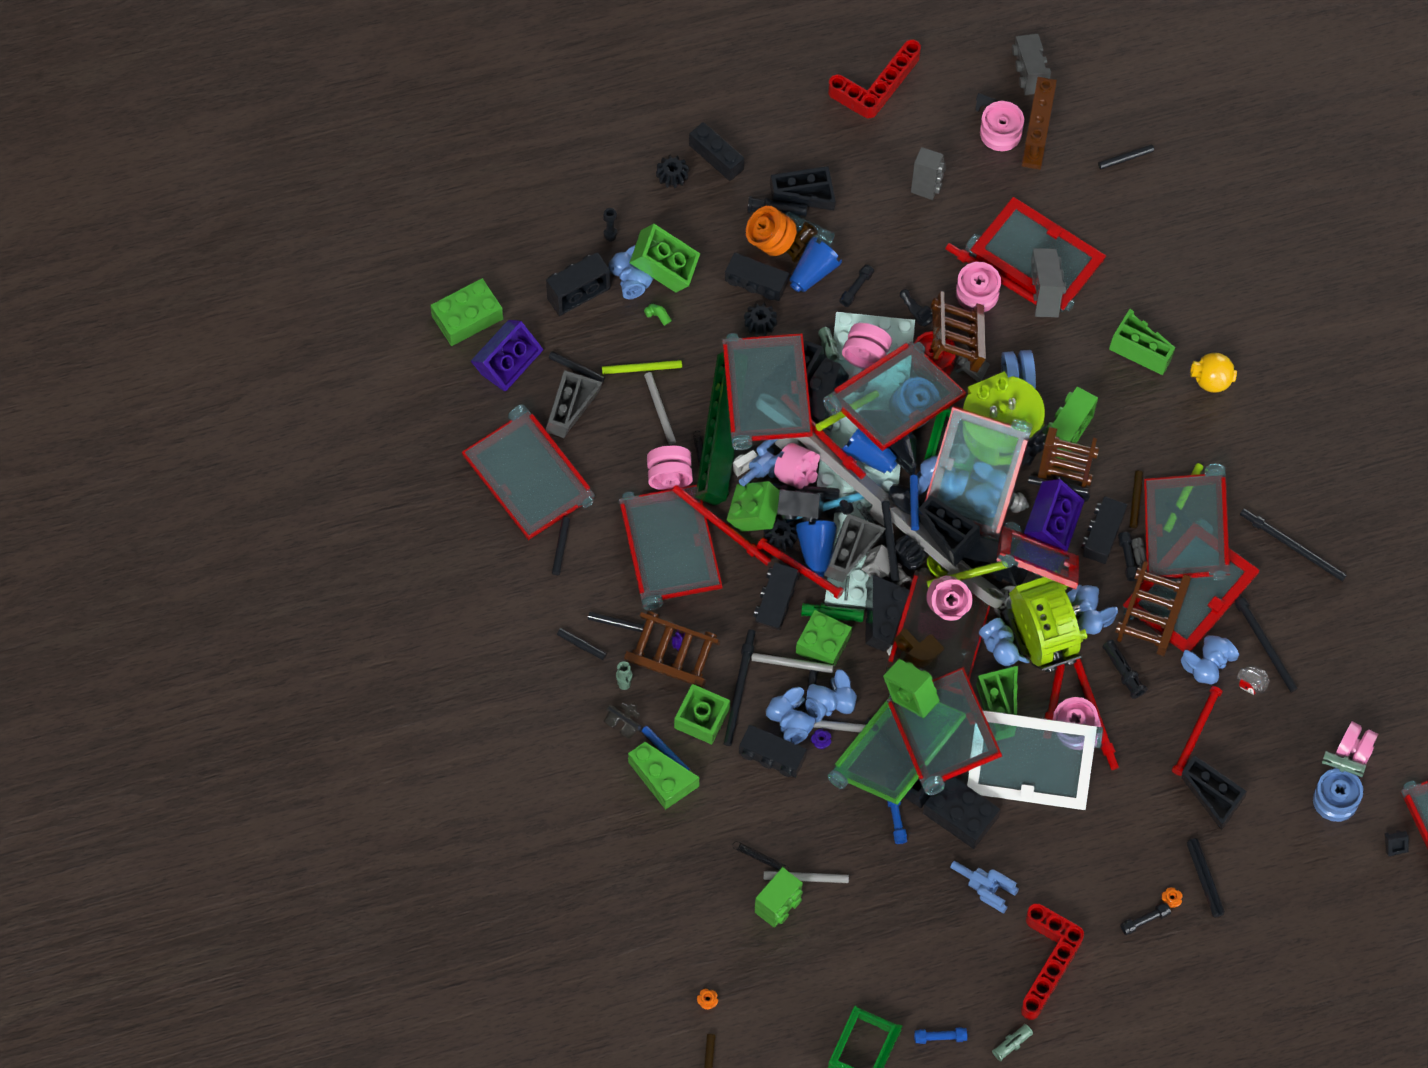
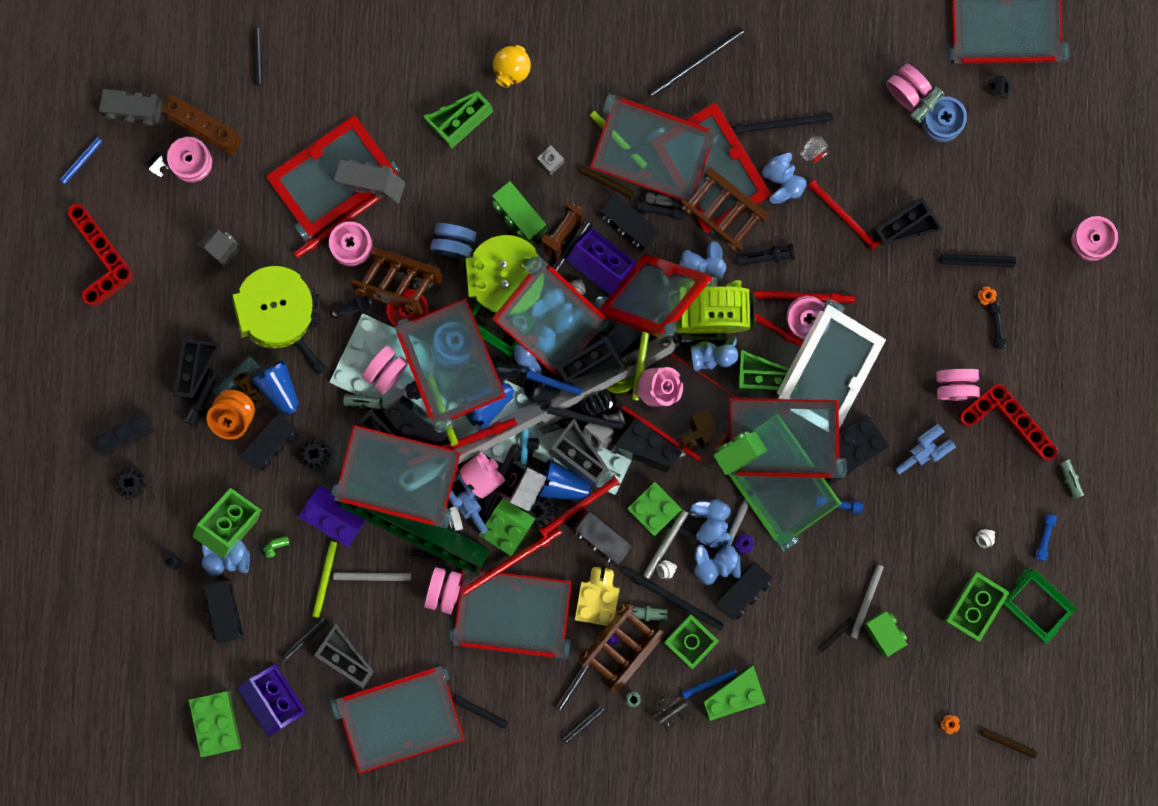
camera: 75 degrees left, 20 degrees up
(702, 352) = (328, 517): none -> dark purple slope
(715, 615) = (597, 598): none -> light yellow plate
(716, 669) = (650, 614): none -> sand green pin
(767, 672) = (666, 569): none -> white plate
(838, 613) = (628, 491): green pin -> none
(840, 982) = (976, 606): none -> bright green brick
(889, 233) = (275, 307): none -> lime piece
(917, 974) = (985, 538): none -> white plate
(963, 41) = (81, 160): none -> blue bar
(1066, 889) = (957, 387): none -> bright pink wheel
(1135, 438) = (550, 160): none -> light grey brick
(1274, 971) = (1105, 240): none -> bright pink wheel

